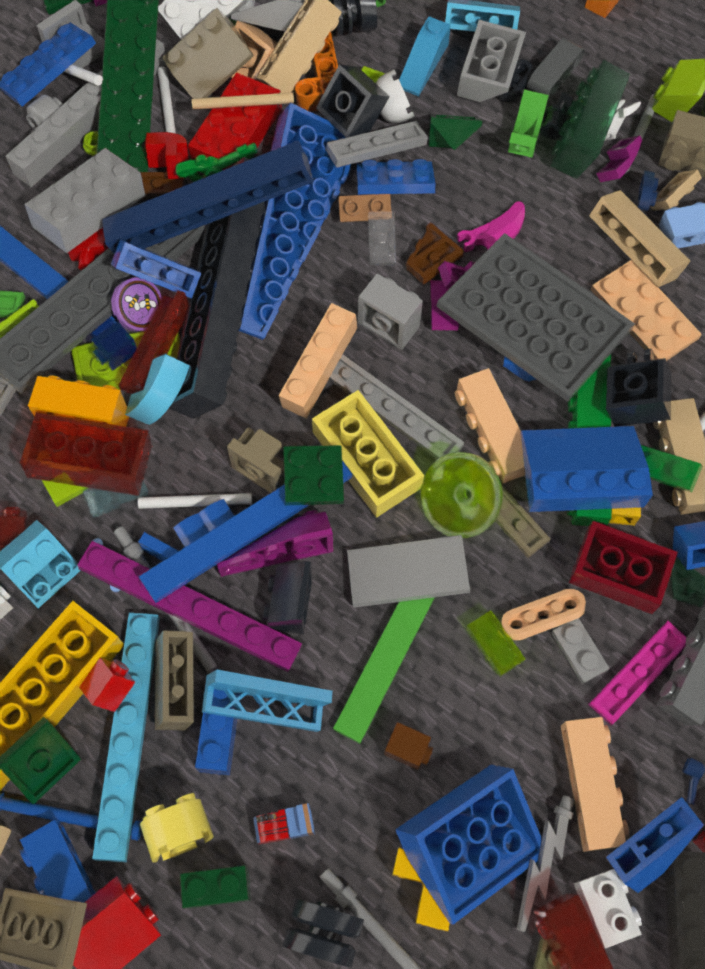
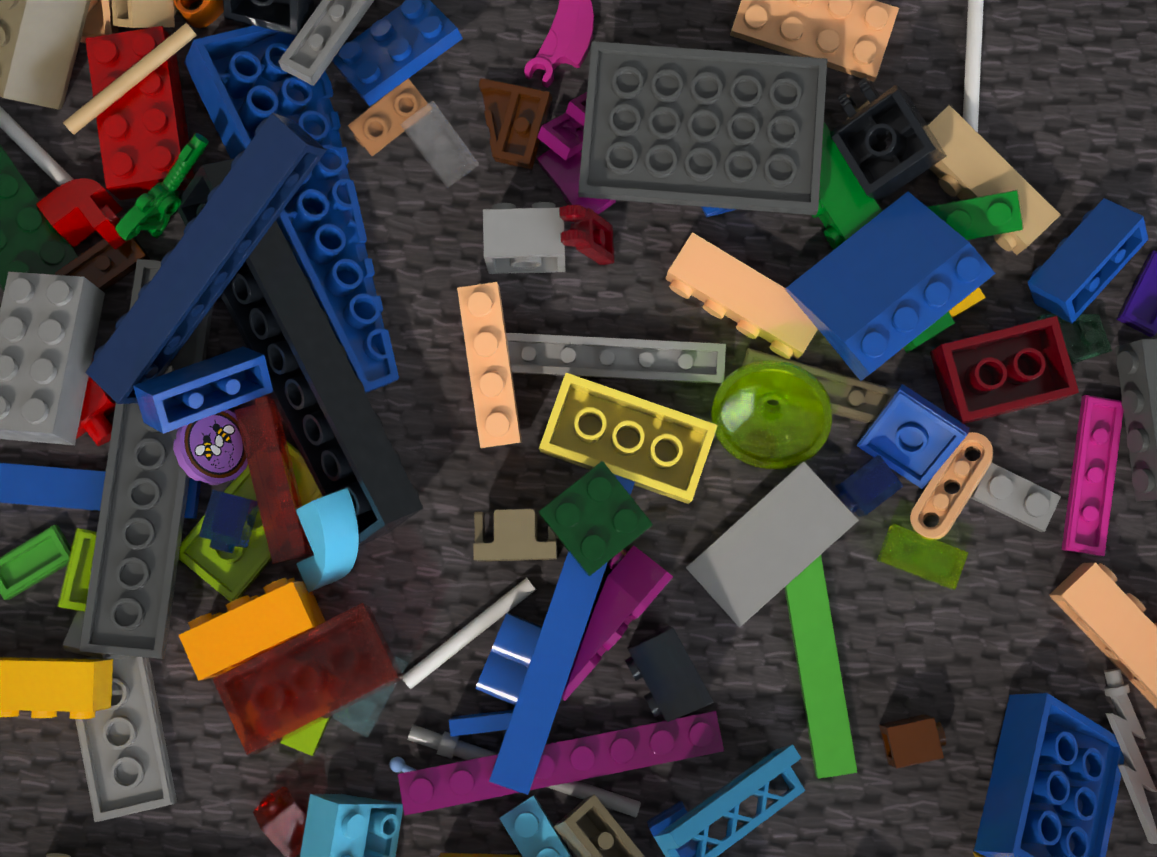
camera: 35 degrees left, 15 degrees up
(427, 328) = (588, 234): none -> dark red hinge
(490, 578) = (868, 486): none -> clear blue brick
(539, 566) = (913, 436): none -> blue tile

